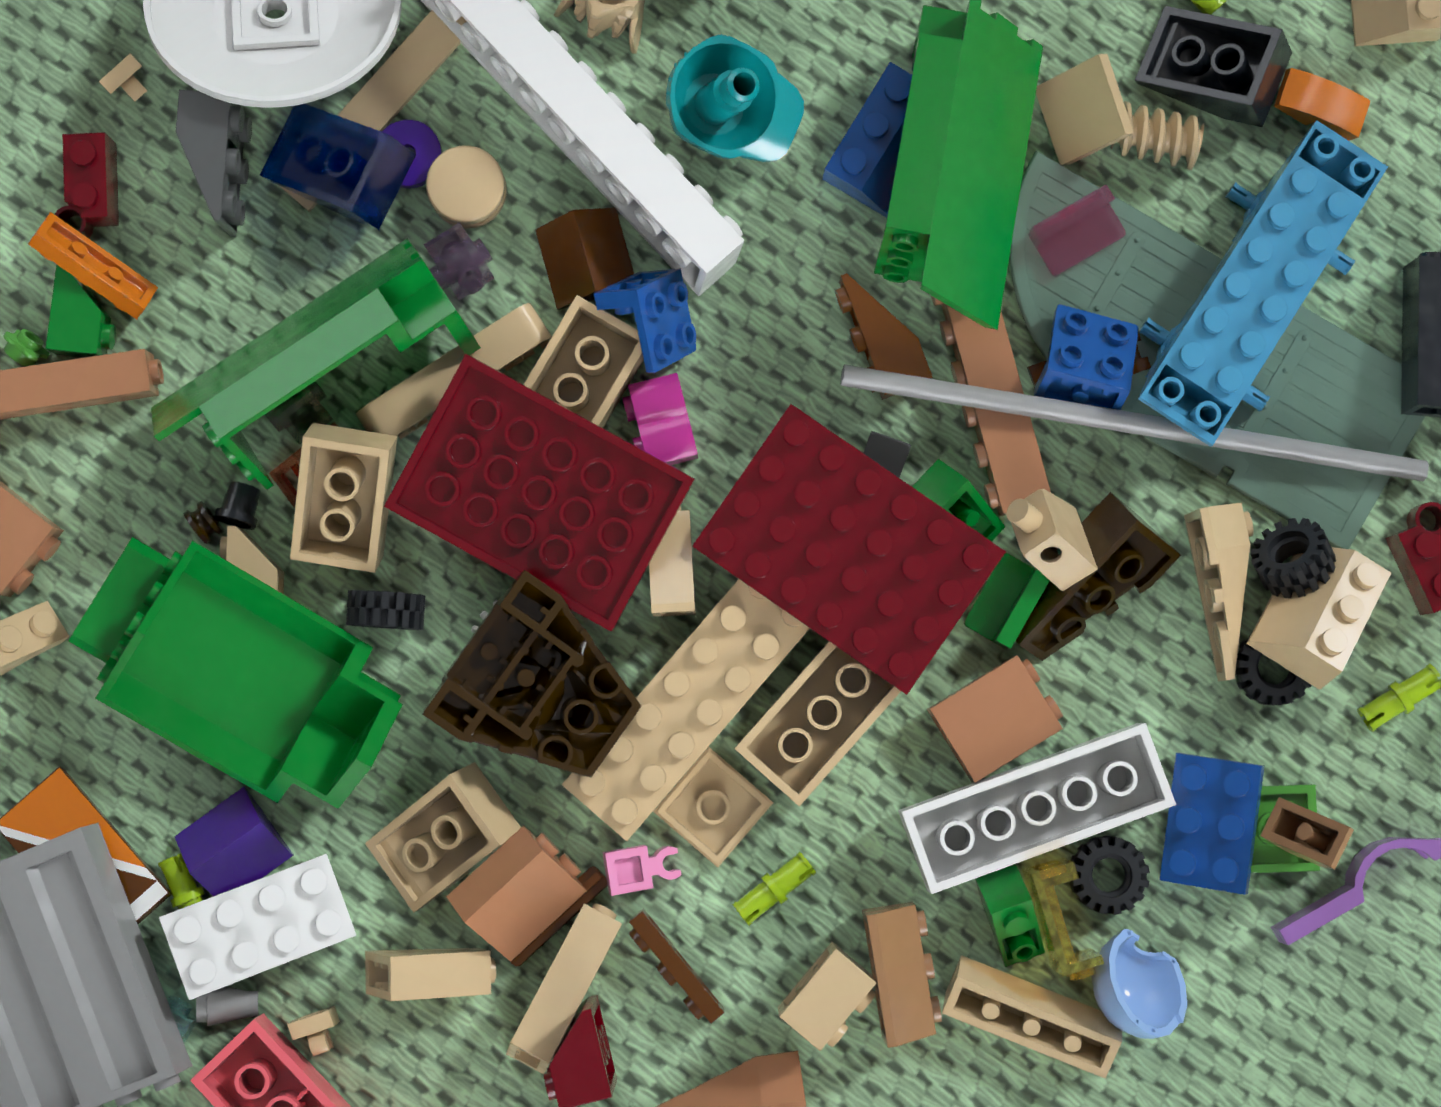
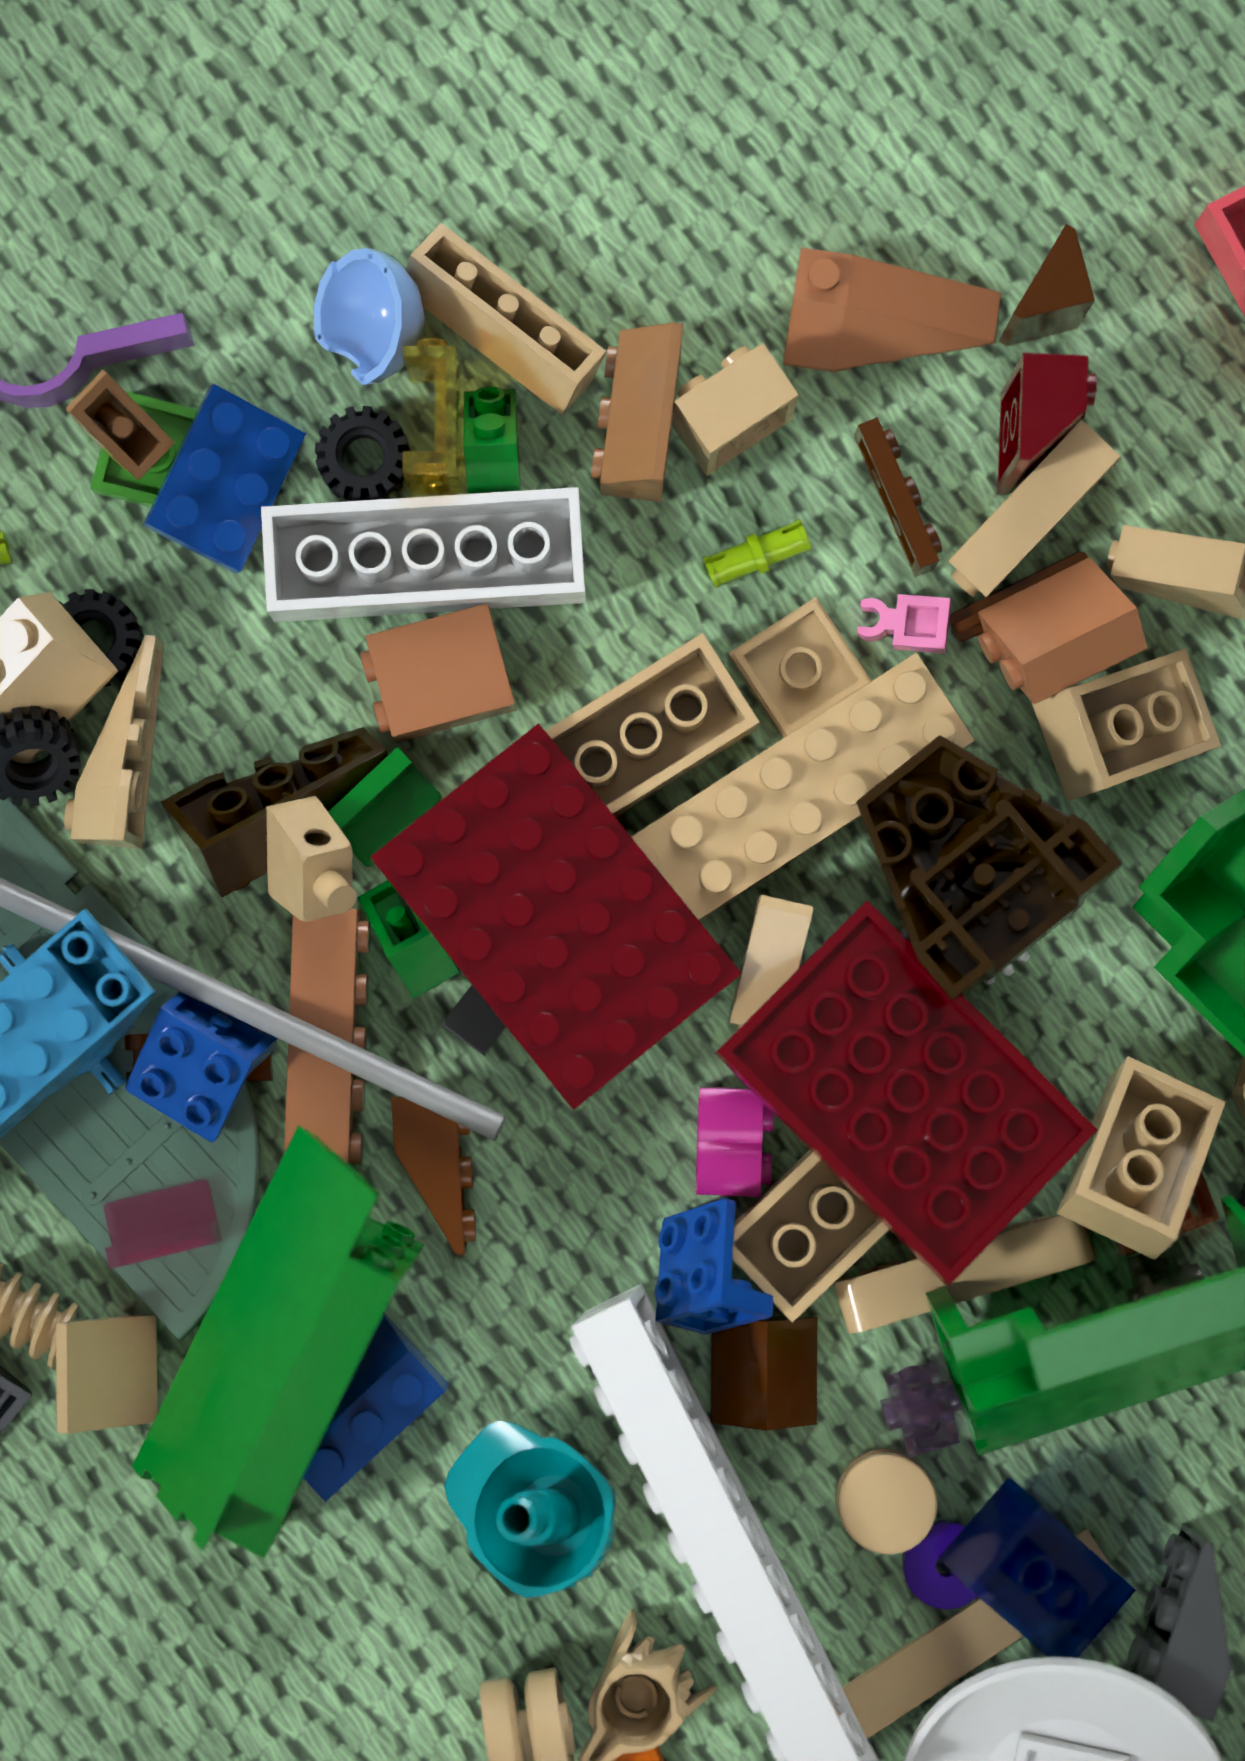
camera: 165 degrees left, 0 degrees up
(385, 609) = (1126, 1008): black tyre -> none

